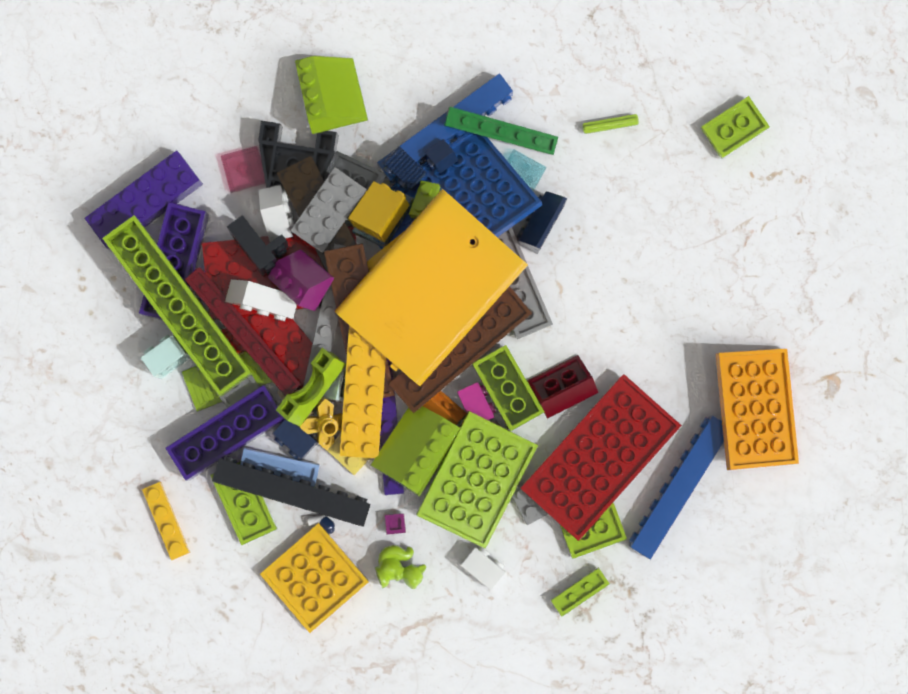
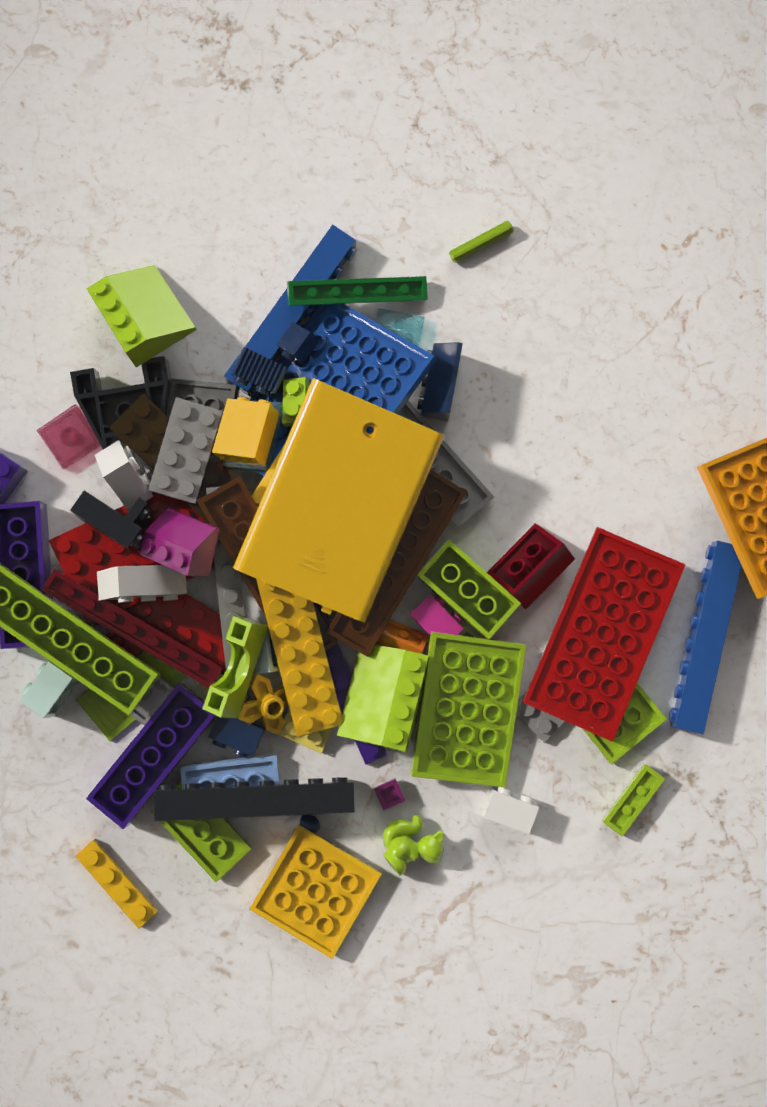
camera: 25 degrees left, 0 degrees up
(735, 127) = (626, 198): lime plate -> none

